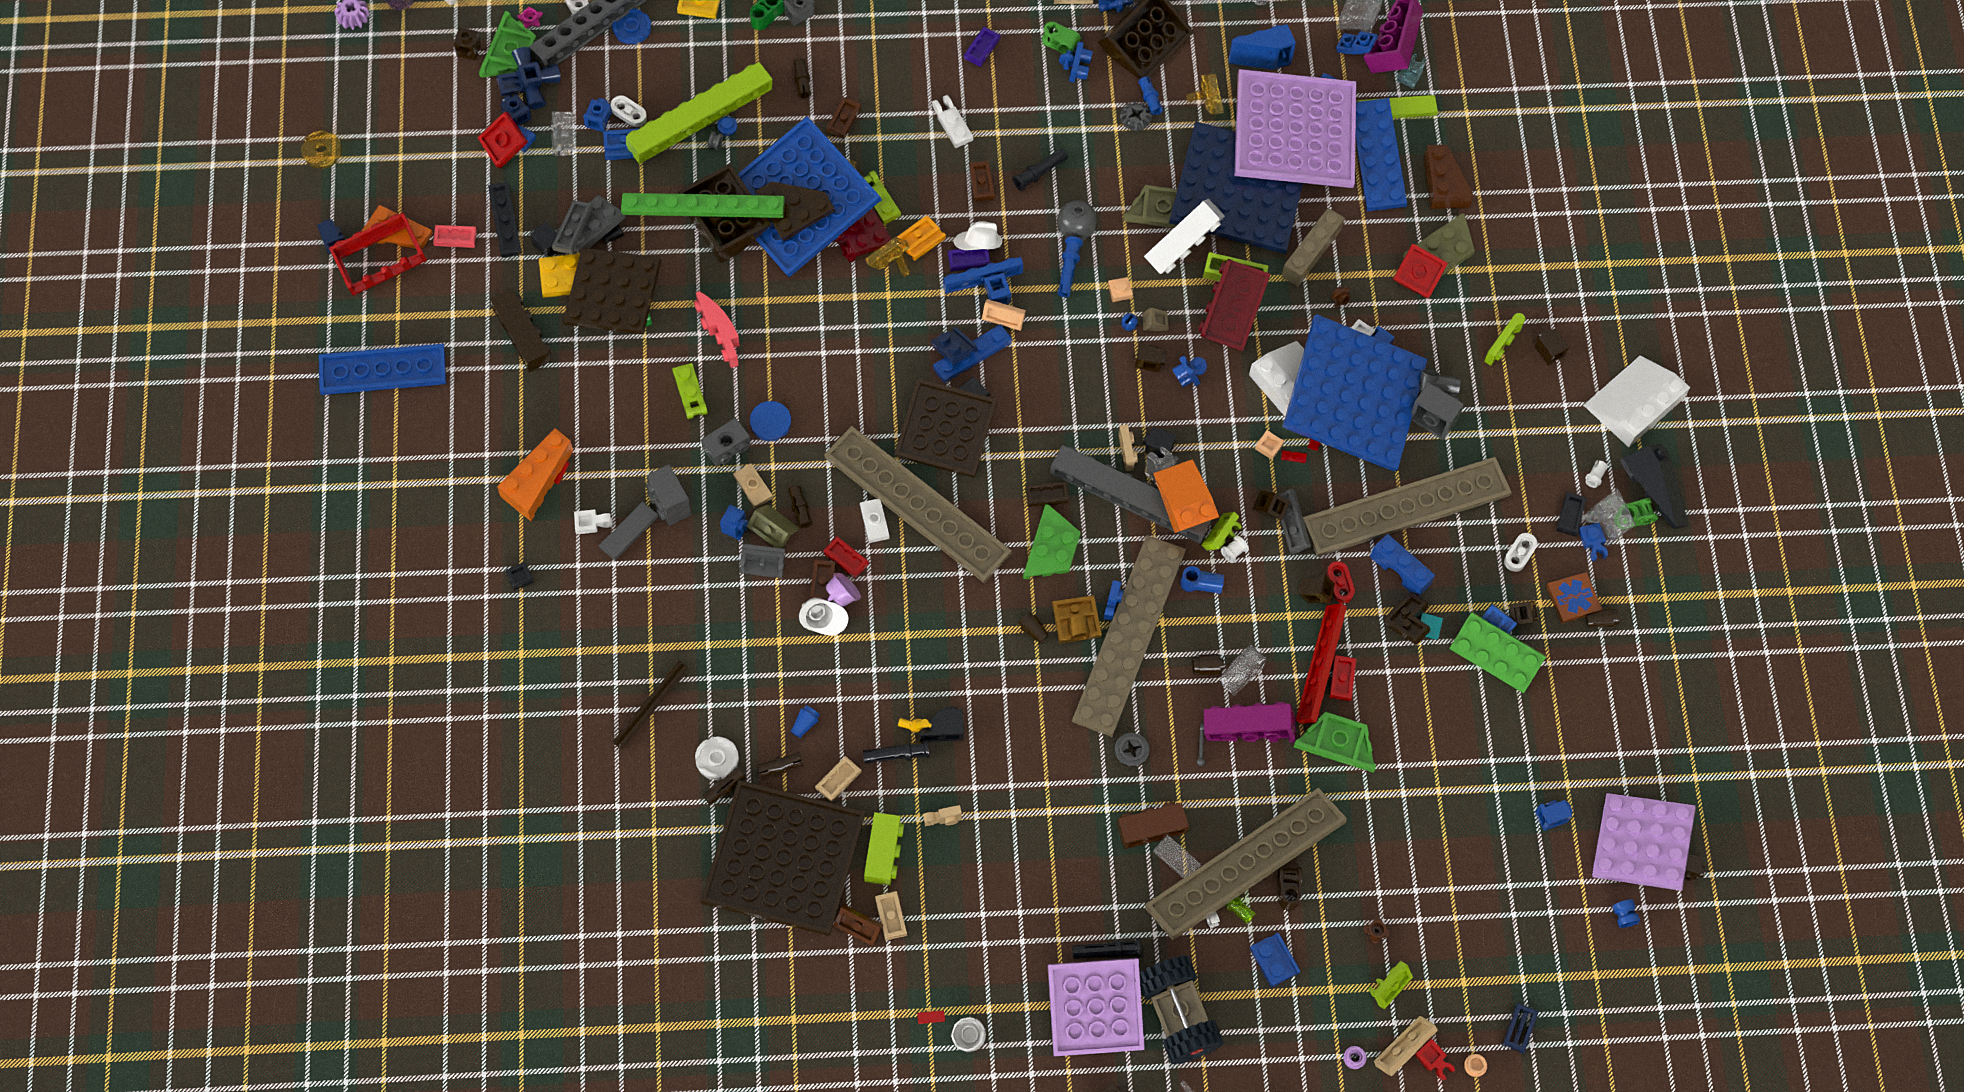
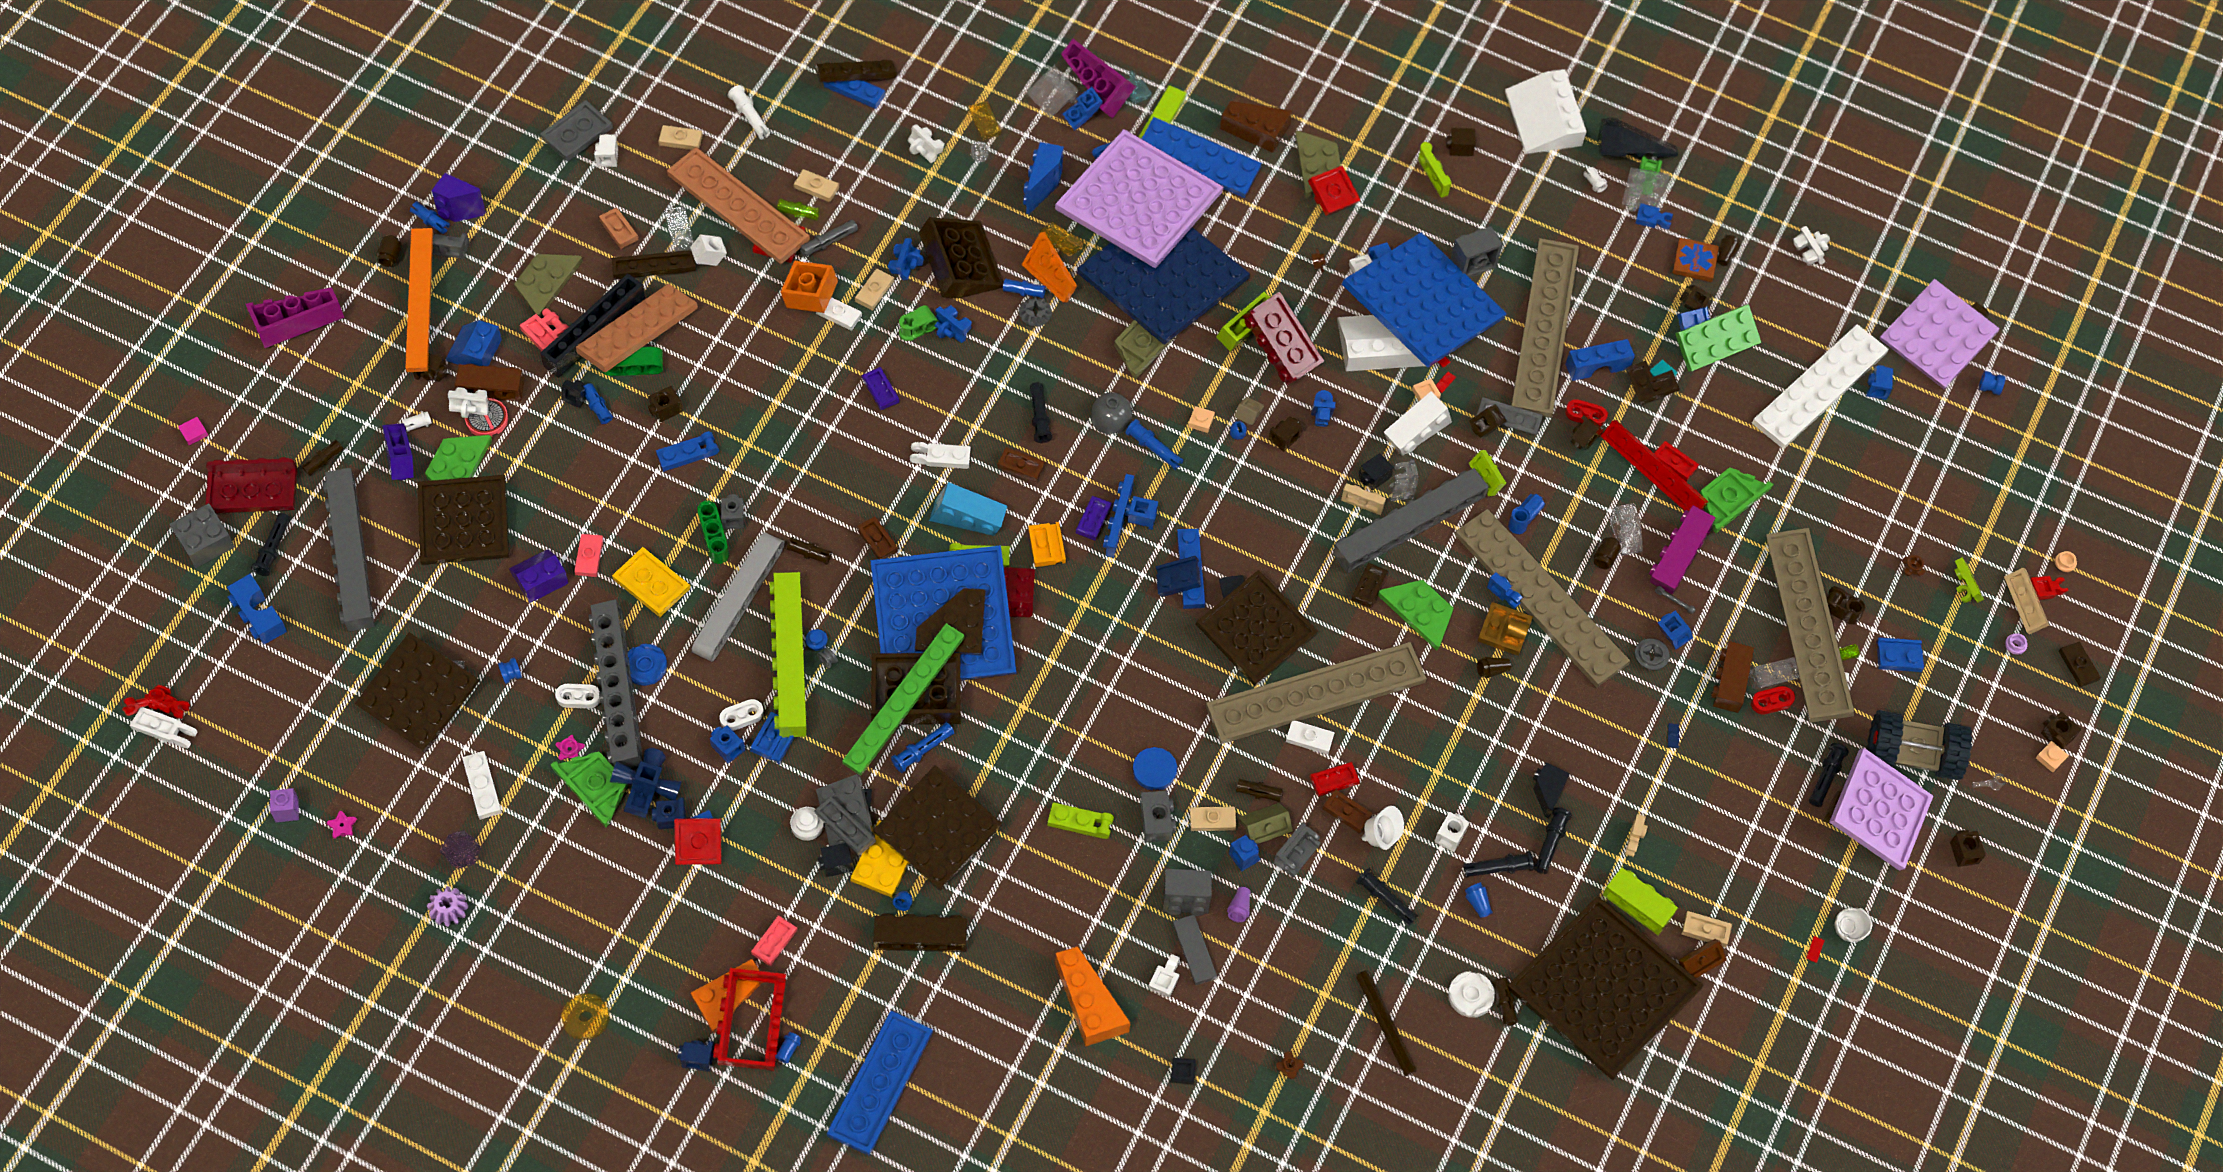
camera: 60 degrees left, 5 degrees down
(379, 292) = (788, 1047): none -> blue pin
(467, 43) = (563, 817): dark brown brick -> none
(505, 220) = (786, 886): black plate -> none
(541, 304) = (905, 905): none -> blue hinge
(561, 202) = (806, 824): none -> white plate
(563, 133) = (726, 785): clear hinge -> none
(569, 656) = (1287, 1071): none -> reddish brown plate
(672, 241) = (914, 754): none -> blue pin
(685, 543) = (1239, 906): none -> medium lavender cone
(718, 324) = (1023, 757): coral slope -> none
(728, 52) = (738, 597): none -> light grey beam
(765, 641) = (1378, 890): none -> black pin
(780, 765) = (1510, 943): dark brown pin -> none
(838, 779) = (1551, 902): tan plate -> none
(842, 590) = (1374, 798): lavender piece -> none
(850, 677) = (1448, 839): none -> white brick
(852, 729) = (1510, 864): none -> black pin
(890, 251) = (1054, 572): clear yellow plate -> none
(909, 165) = (967, 510): none -> dark azure wedge
(915, 725) = (1536, 809): yellow piece -> none
(979, 236) = (1079, 498): white piece -> none
(1003, 314) = (1170, 521): light nougat tile -> none
(1065, 806) = (1673, 735): none -> dark blue piece
(1154, 869) = (1771, 700): none -> red plate
(1167, 755) = (1681, 632): none -> blue brick
(1179, 102) = (1049, 269): none -> orange wing
(1184, 236) = (1194, 336): white wedge -> none
(1185, 496) = (1454, 474): orange slope -> none
(1230, 453) = (1418, 424): none -> white wedge
(1234, 549) = (1509, 472): white bush -> none
(1313, 247) = (1259, 253): dark tan brick -> none
(1448, 384) = (1445, 240): dark grey piece -> none
(1514, 1045) = (2046, 514): dark blue tile -> none
(1515, 766) = (1820, 386): none -> white plate
(1519, 553) = (1636, 272): white plate -> none
(1571, 514) = (1619, 218): black tile -> none
(1665, 690) = (1815, 253): none -> white hips

